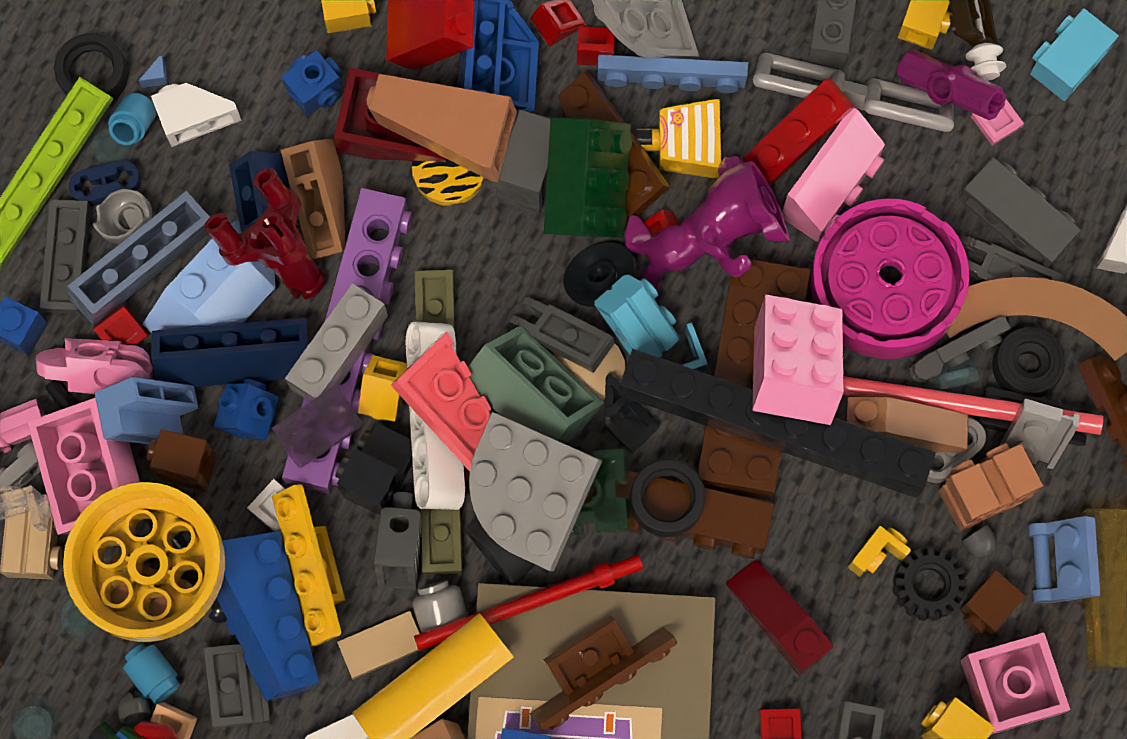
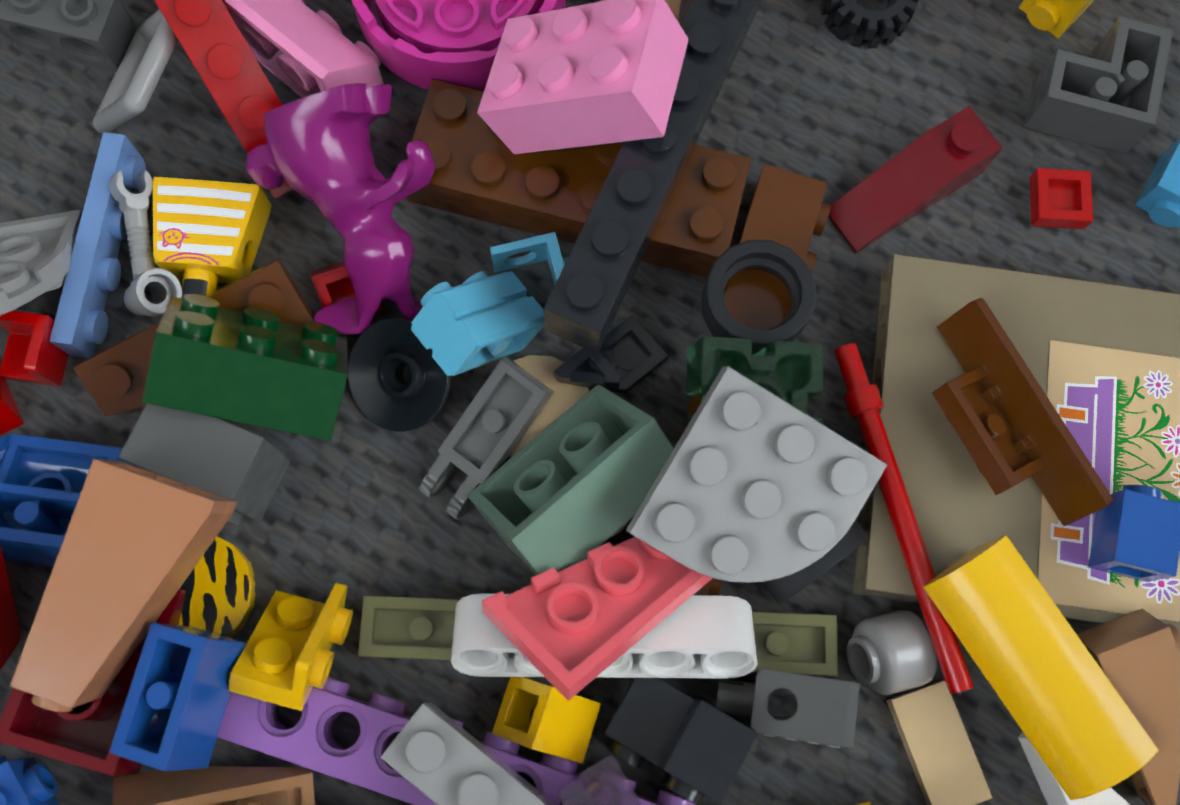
camera: 90 degrees left, 0 degrees up
(381, 167) = (177, 698): none -> blue brick
(416, 230) = (292, 648): none -> yellow bracket
(644, 119) = (157, 281): none -> light grey brick
(871, 555) = (824, 57): yellow bracket -> none

